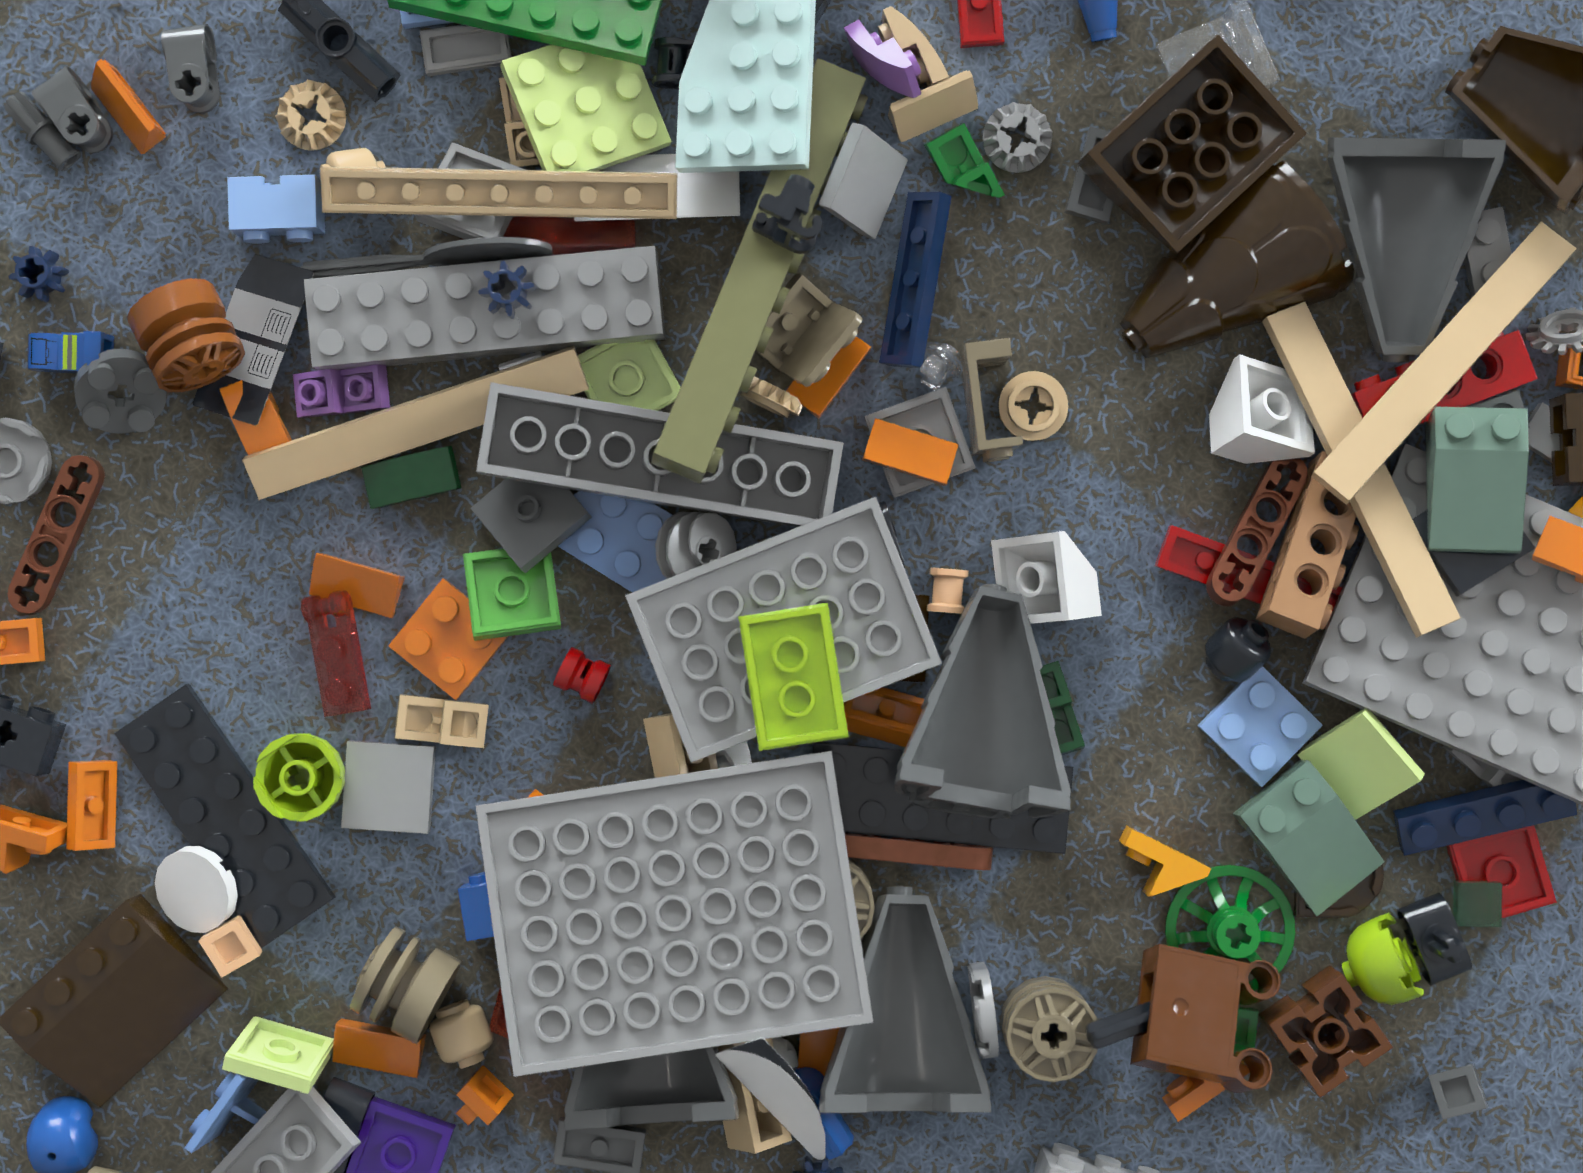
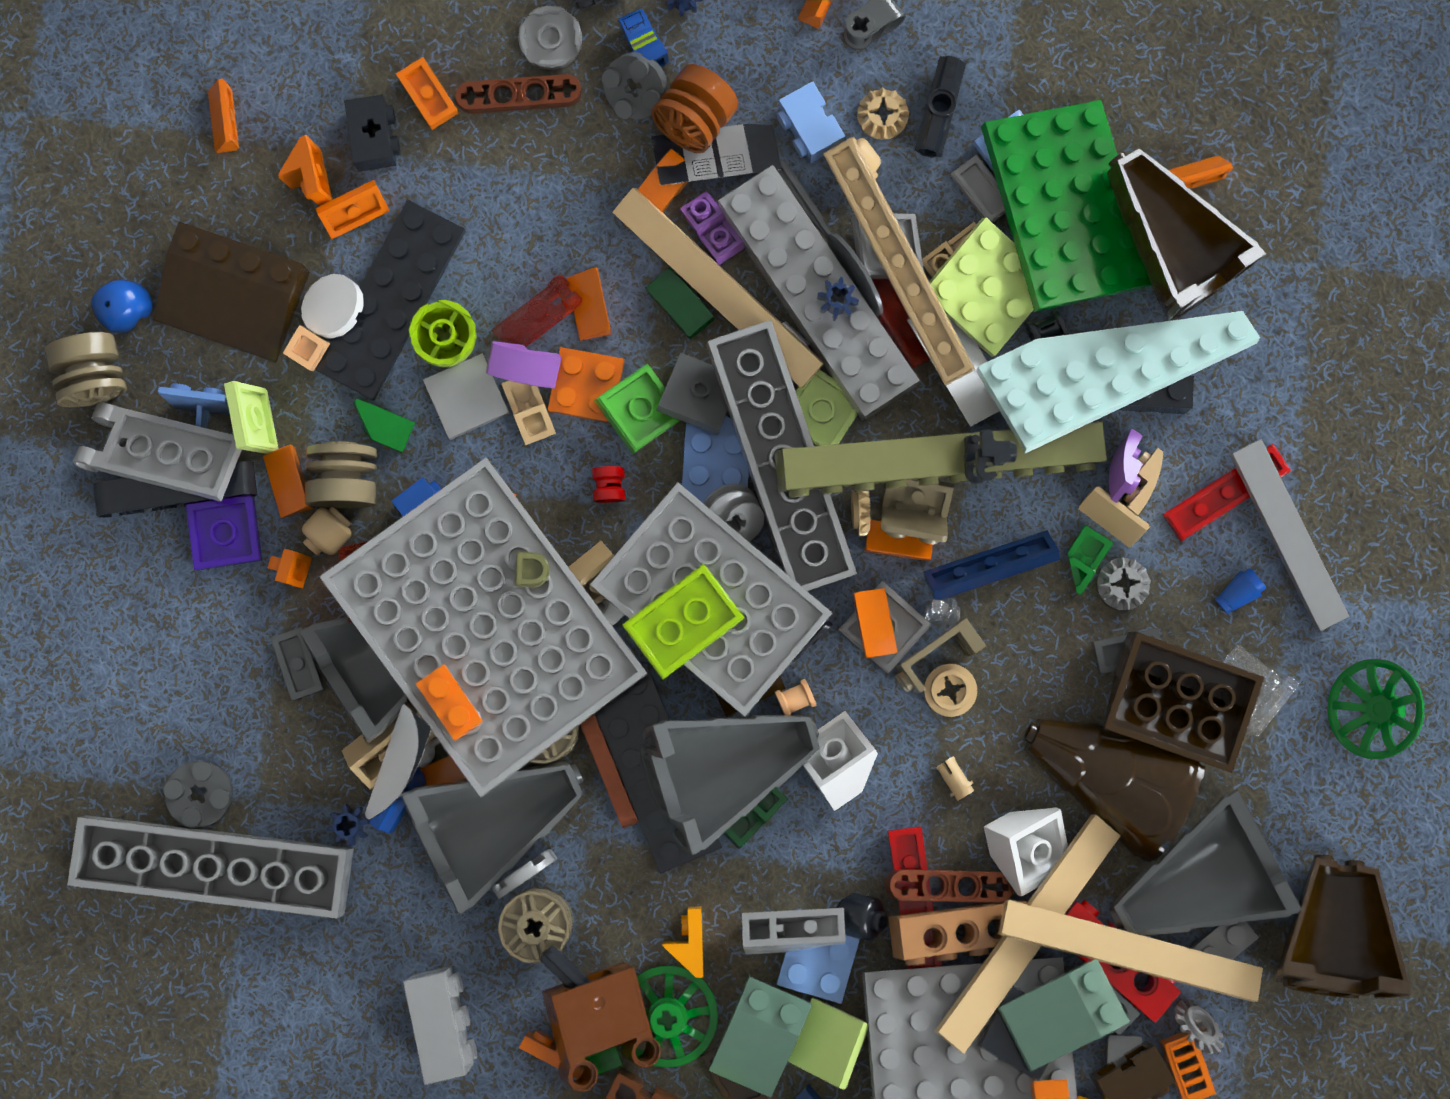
camera: 55 degrees right, 5 degrees down
(372, 901) = (384, 426): none -> green slope
(388, 702) = (523, 365): none -> medium lavender slope
(638, 823) = (531, 570): none -> olive tile
(744, 1001) = (449, 702): none -> orange plate
(863, 181) = (1037, 495): light grey tile -> none
(884, 715) = (688, 696): orange slope -> none
(1139, 455) = (957, 780): none -> tan pin
(1213, 737) = (792, 930): none -> light grey slope

